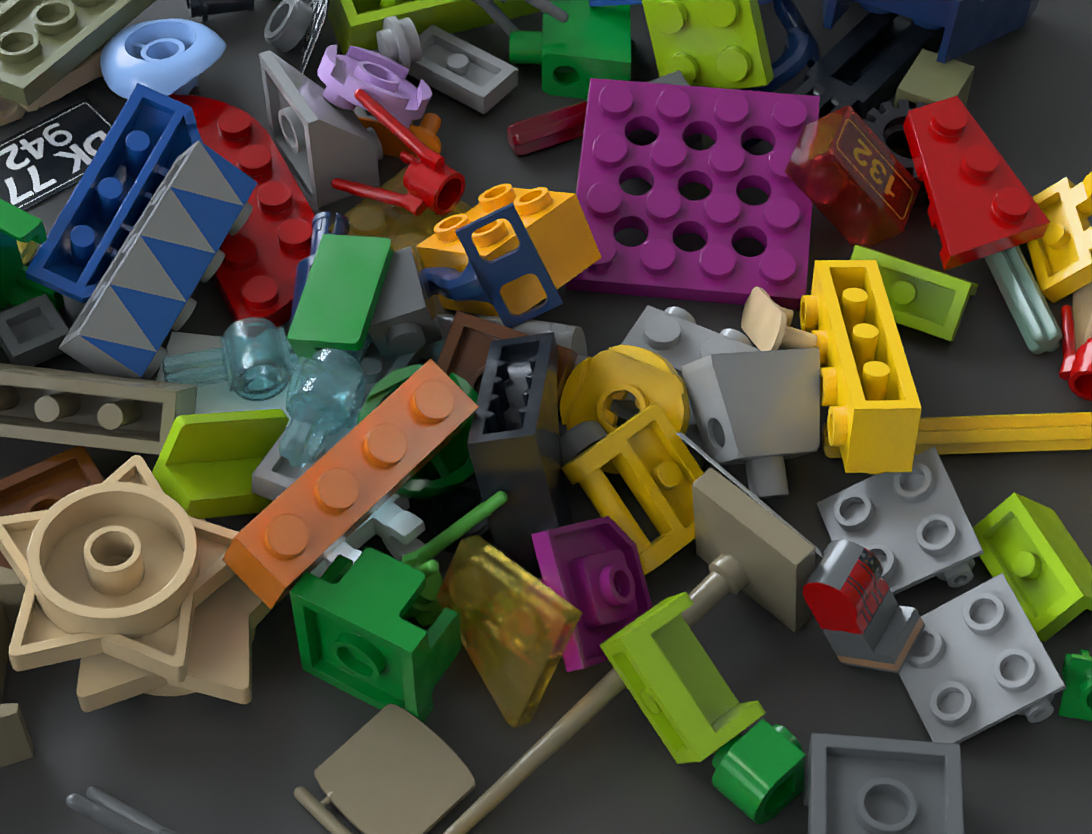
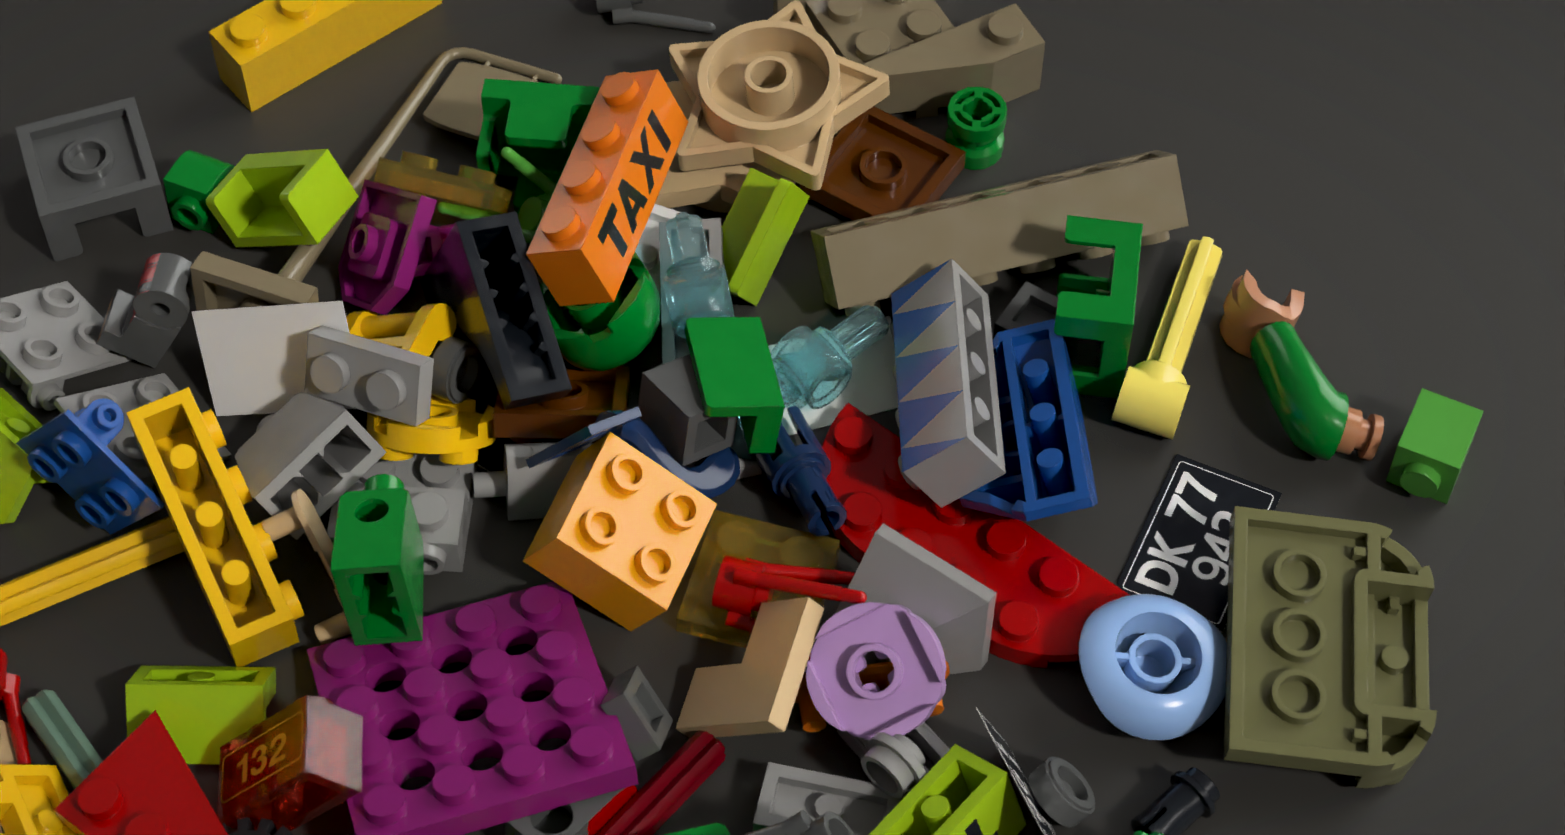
camera: 155 degrees right, 5 degrees up
(468, 111) = (763, 688): none -> tan tile
(563, 149) = (639, 712): none -> dark grey tile
(658, 380) = (369, 375): none -> light grey plate
(720, 280) = (379, 535): none -> green torso
(970, 438) = (76, 457): none -> blue hinge

